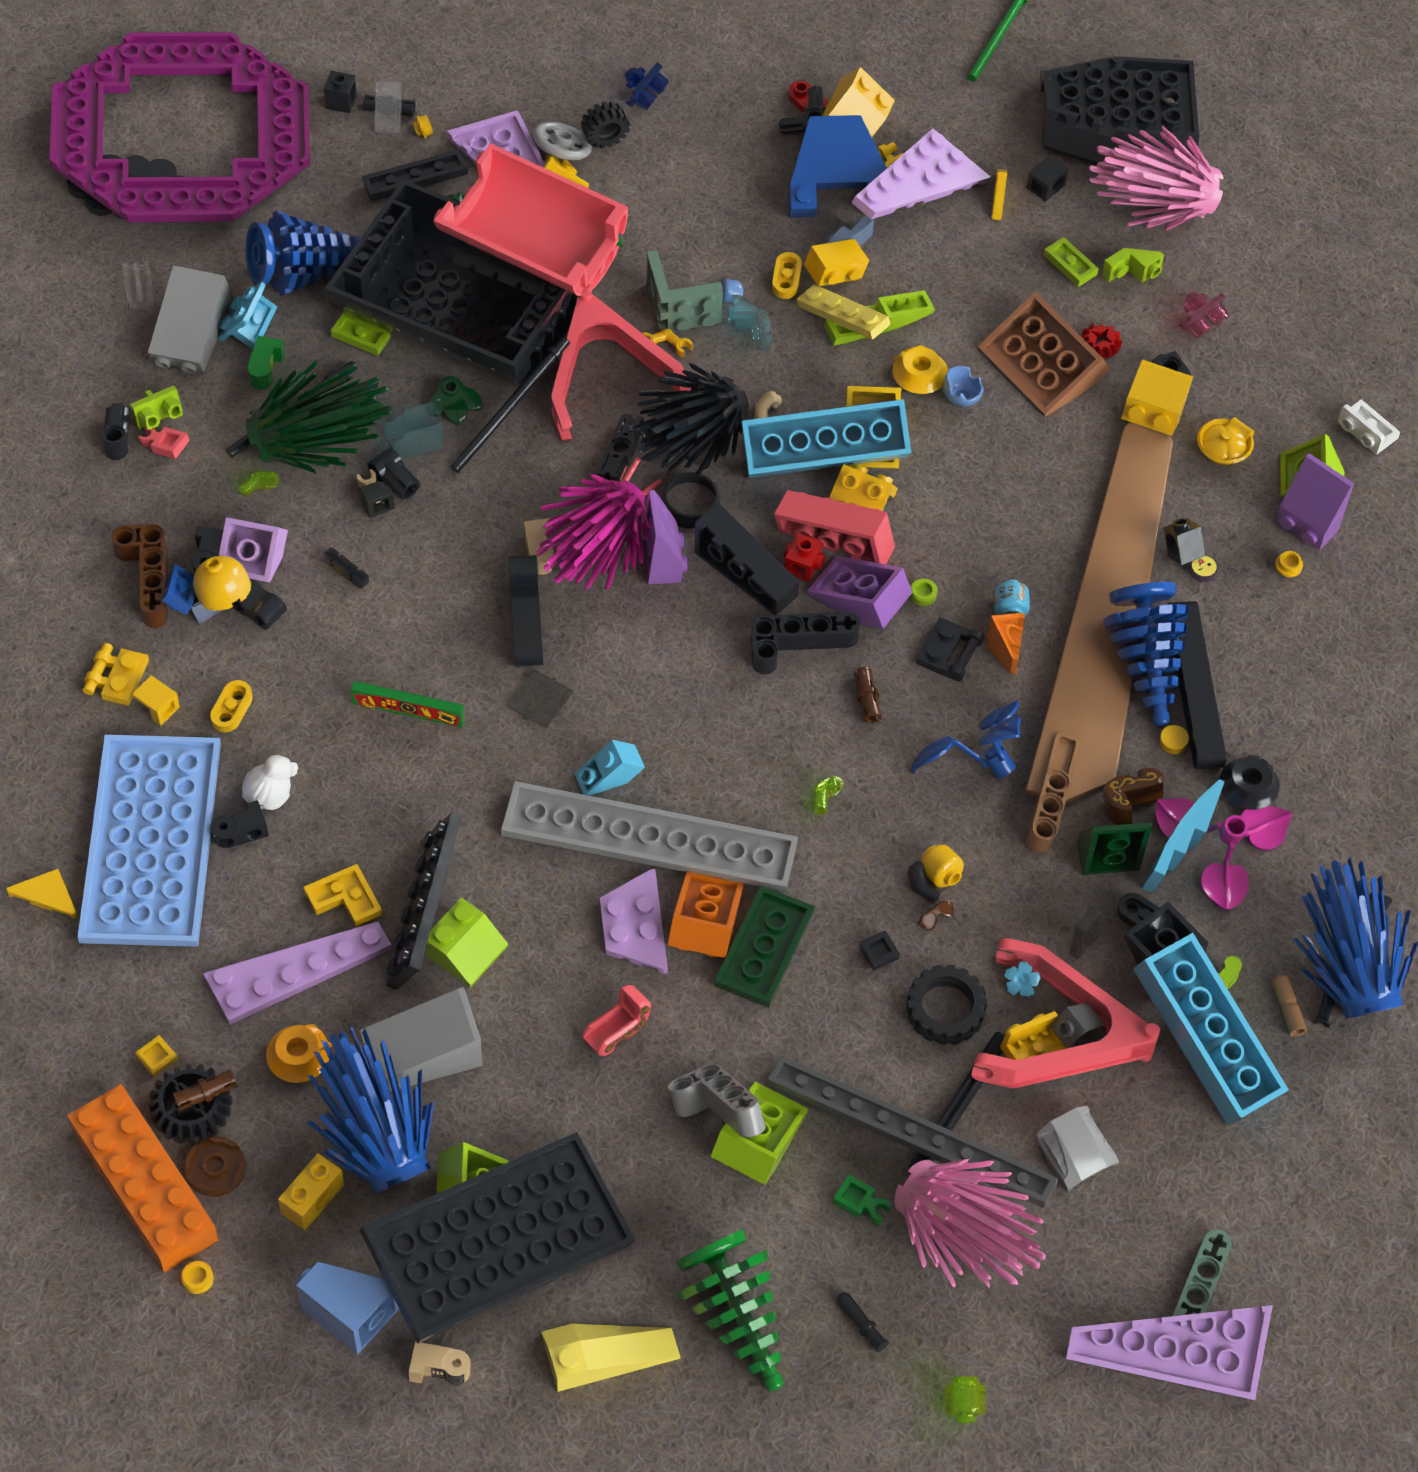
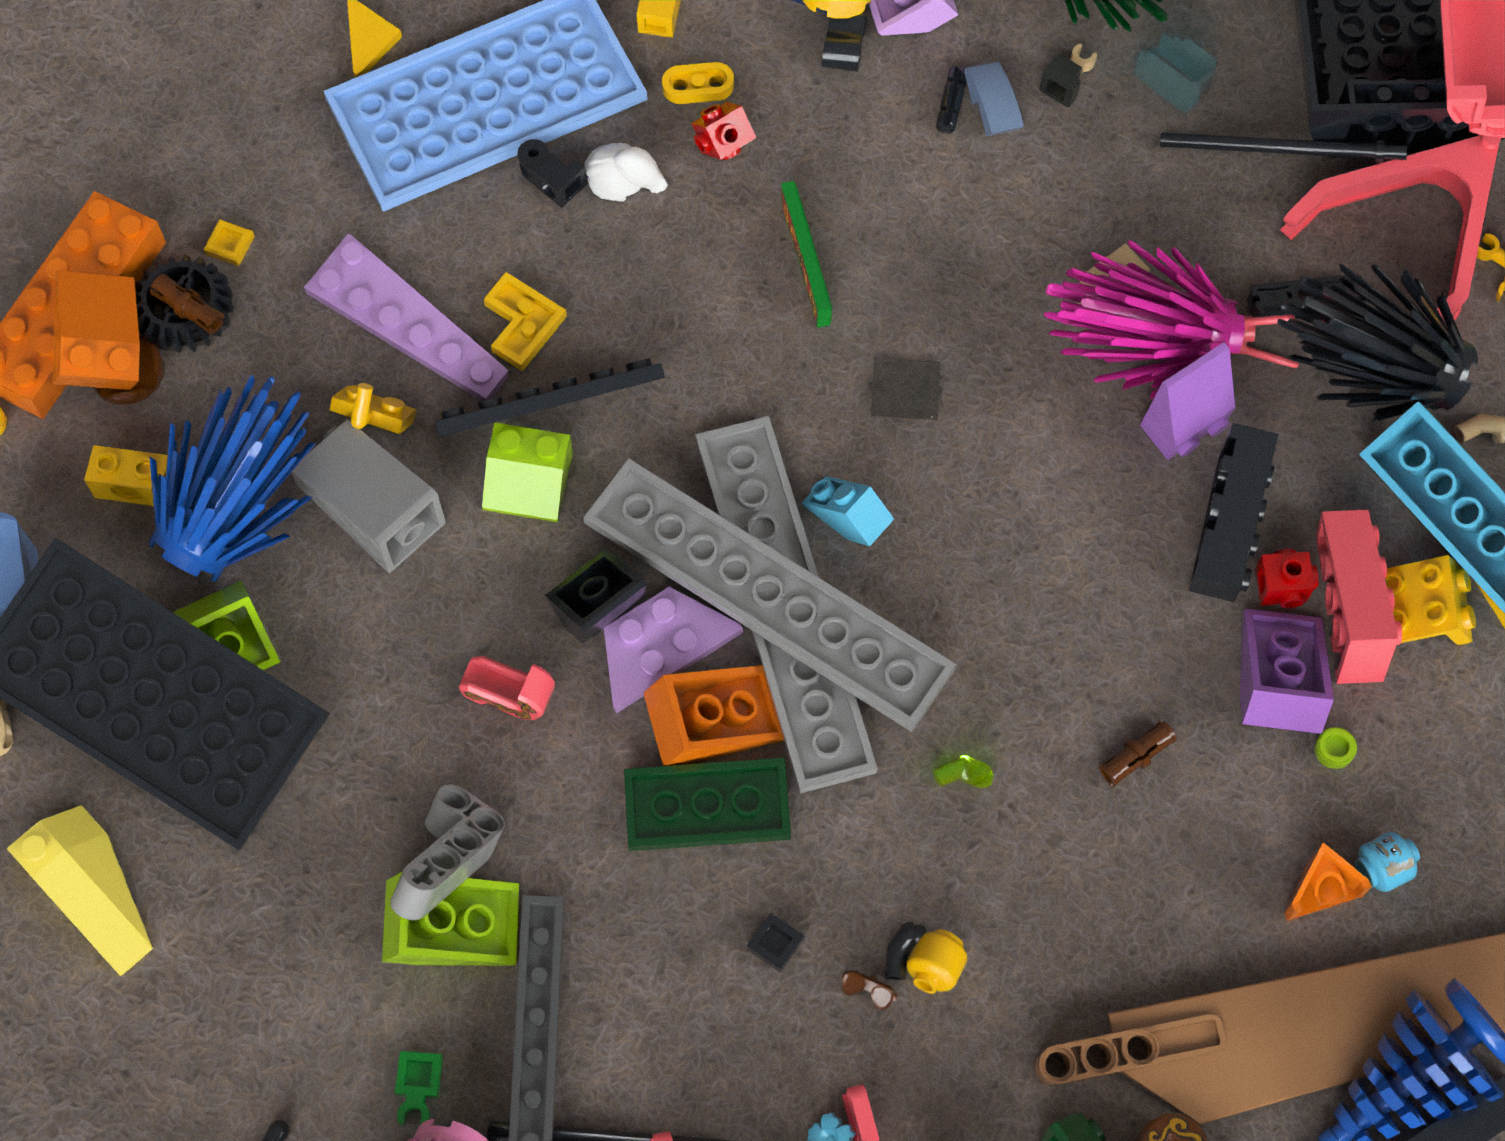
camera: 65 degrees right, 10 degrees up
(191, 1156) = (95, 331): none -> orange slope
(283, 705) = (722, 130): none -> brick
(292, 1054) = (301, 368): light orange piece -> none
(353, 540) = (995, 98): none -> sand blue slope
(360, 1014) = (370, 409): none -> yellow plate
(390, 469) = (1109, 74): black piece -> none
(457, 402) = (1251, 92): dark green plate -> none
(525, 610) = (1003, 312): black beam -> none
(589, 935) = (596, 595): none -> black slope
(643, 838) = (770, 594): none -> light grey plate
(688, 520) = (1285, 443): black tyre -> none
(723, 1275) = (196, 997): green plant -> none
(837, 629) = (1169, 636): black beam -> none
(939, 1031) = (733, 1018): black tyre -> none
(941, 646) = (1269, 808): black plate -> none
(996, 757) = (1135, 940): blue plant -> none

